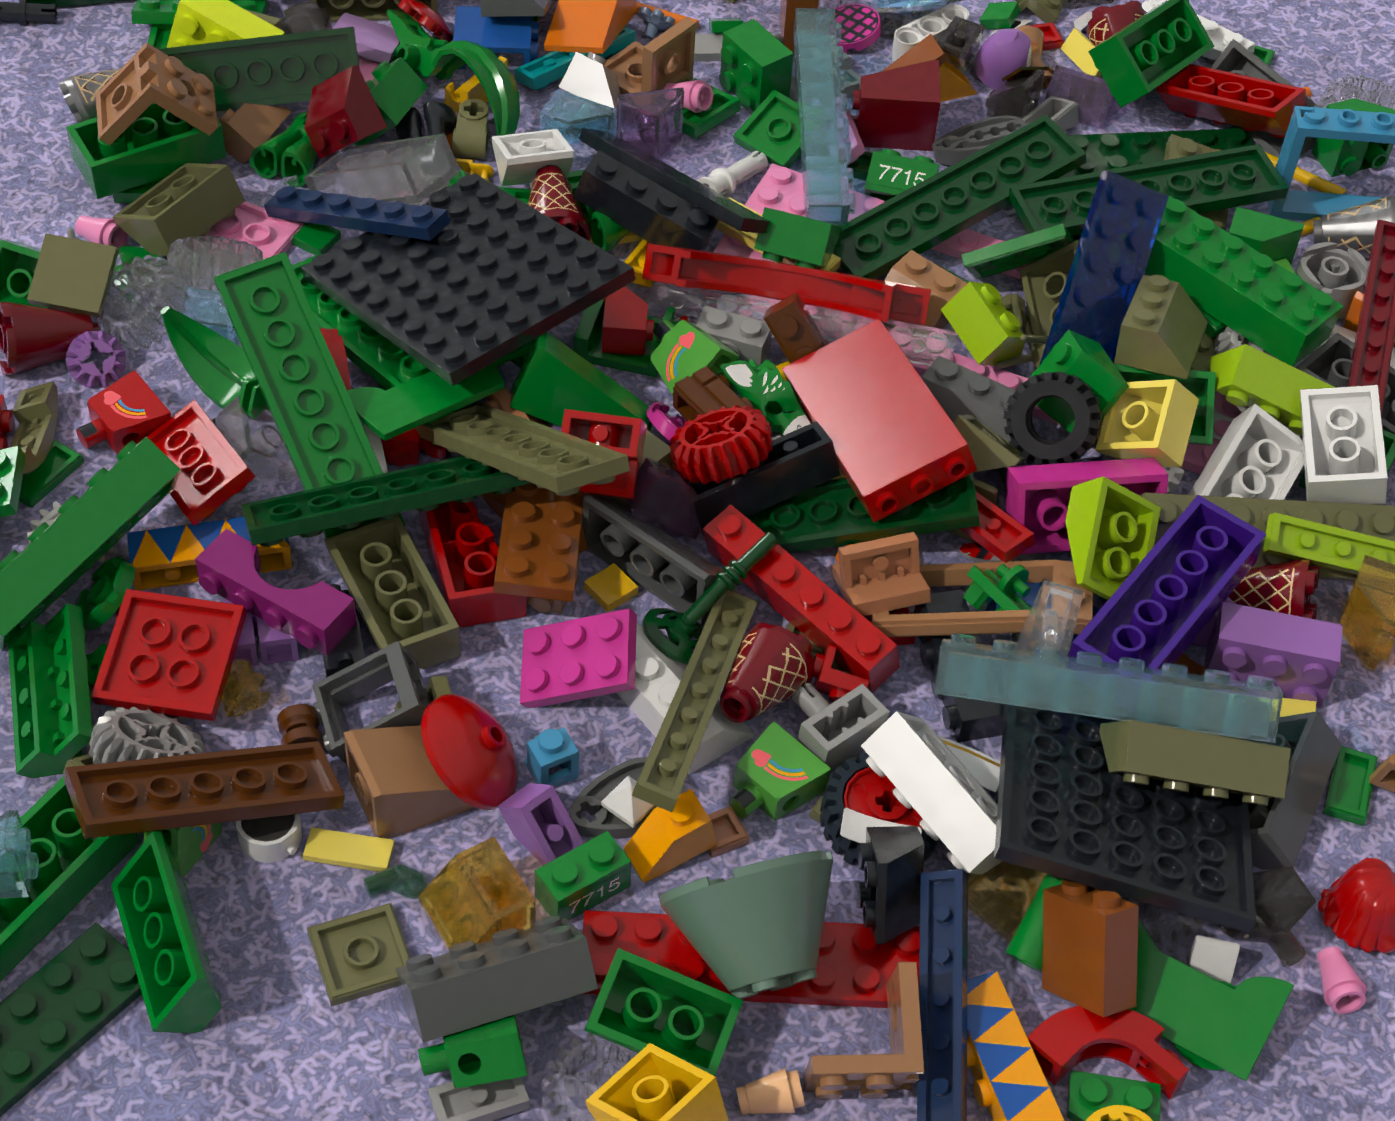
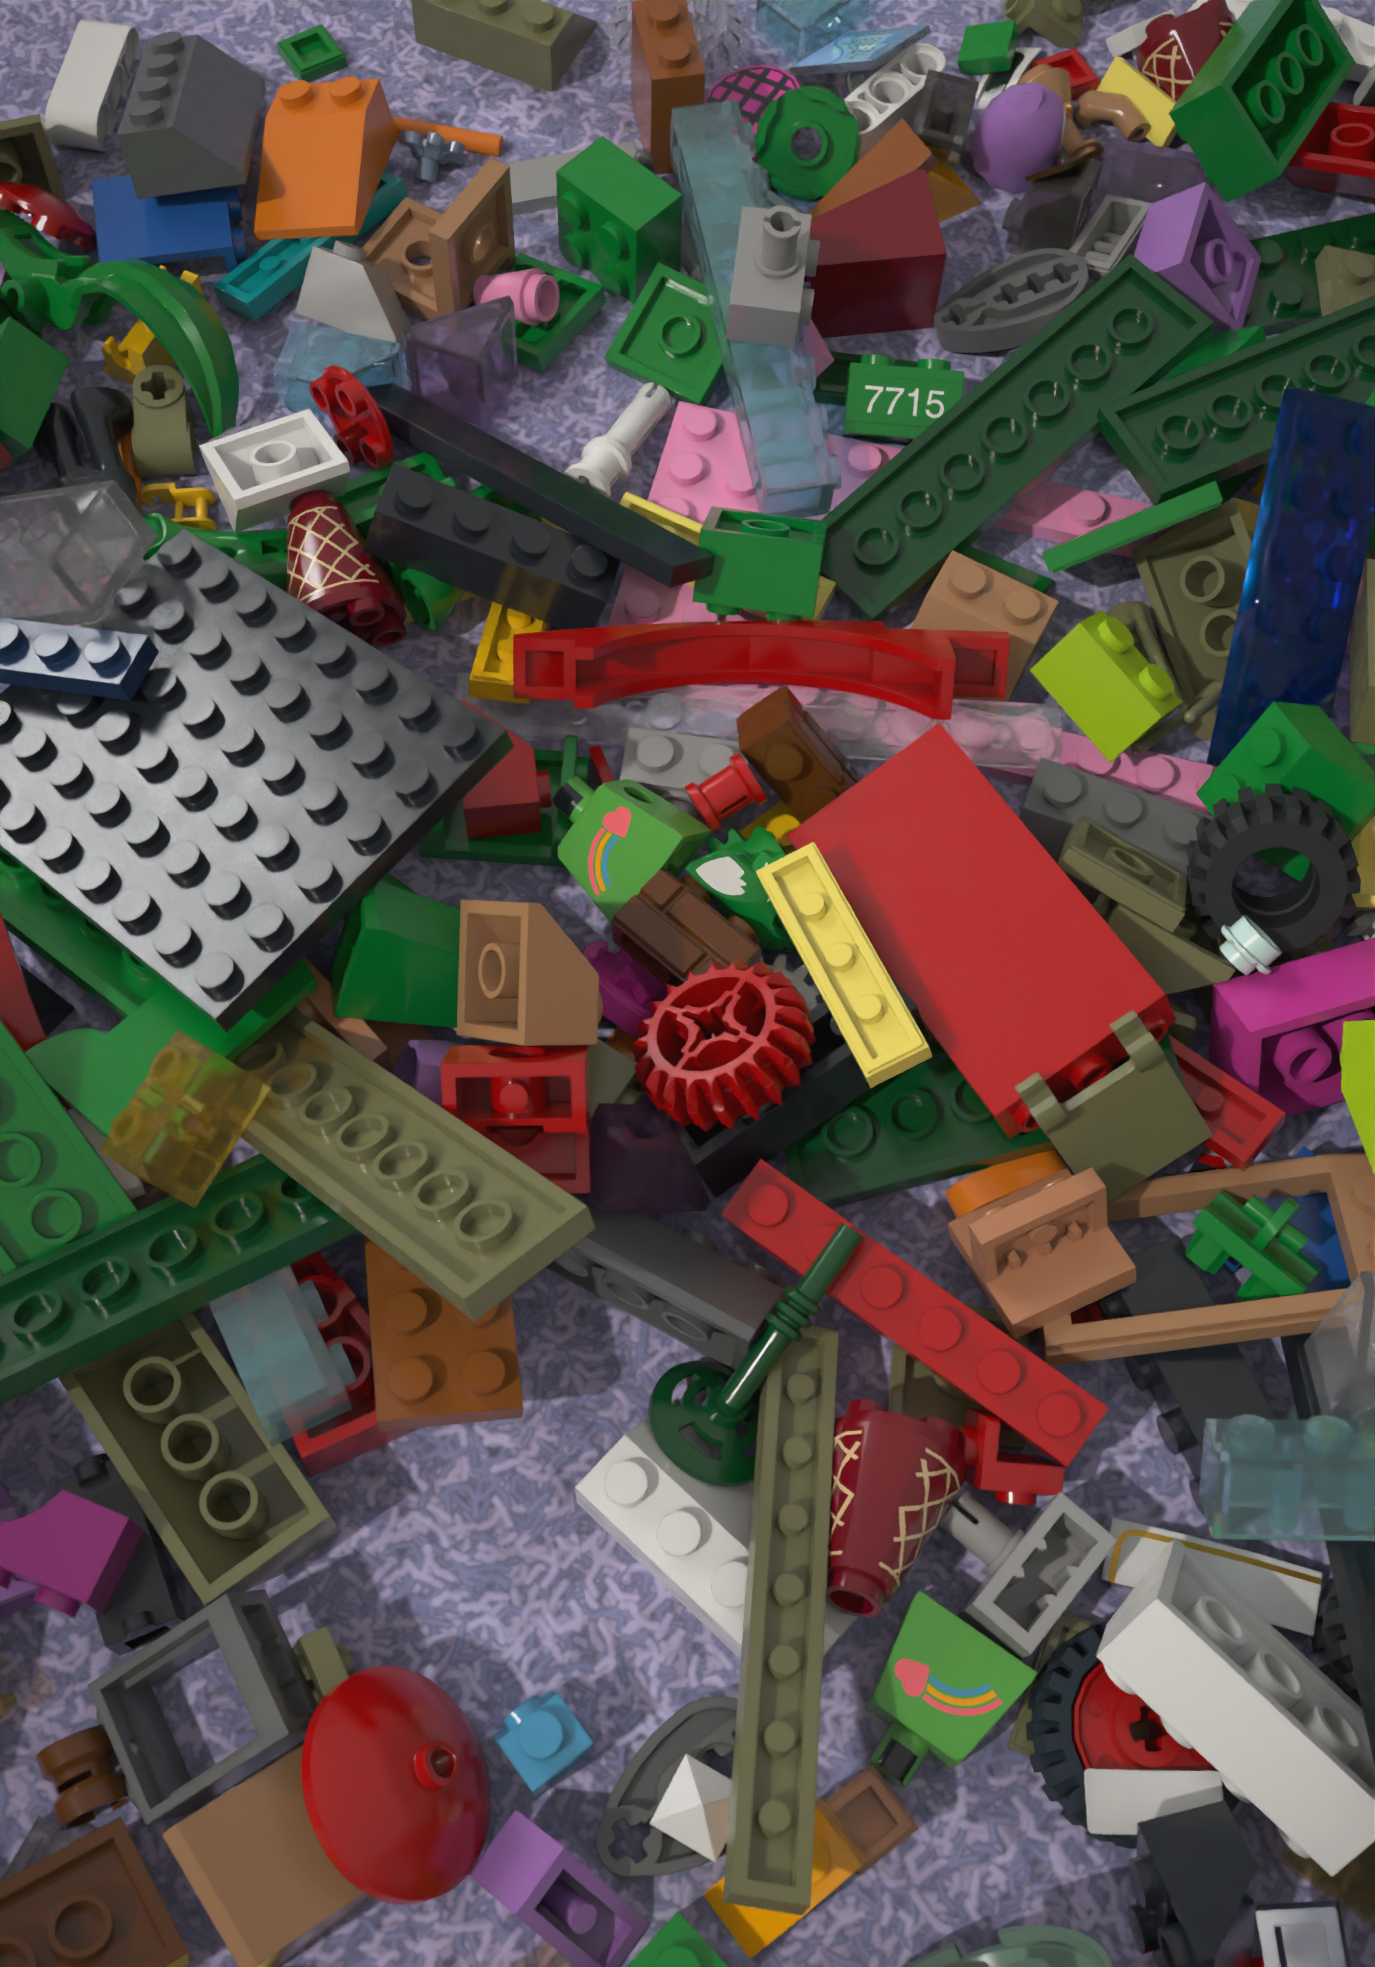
camera: 10 degrees left, 15 degrees up
(421, 424) = (184, 1118): none -> clear yellow brick
(450, 544) = (282, 1354): none -> clear light blue brick
(579, 659) = (555, 1531): dark pink plate -> none
(581, 136) = (355, 416): none -> red dish
(611, 587) = (575, 1330): yellow tile -> none
(619, 382) = (523, 978): none -> medium nougat slope
(720, 25) = (550, 140): green tile -> none
(751, 339) = (726, 793): none -> red bush
(796, 417) = (844, 965): none -> light yellow tile
(833, 93) = (770, 274): none -> light grey brick
(861, 34) = (839, 133): none -> green tile
(937, 512) = (1126, 1120): none -> olive flag
(969, 407) = (1125, 873): none -> olive tile
(1029, 448) = (1248, 946): none -> light aqua plate
(1069, 55) = (1111, 107): none -> medium nougat arm
(1097, 130) = (1201, 254): none -> medium lavender slope

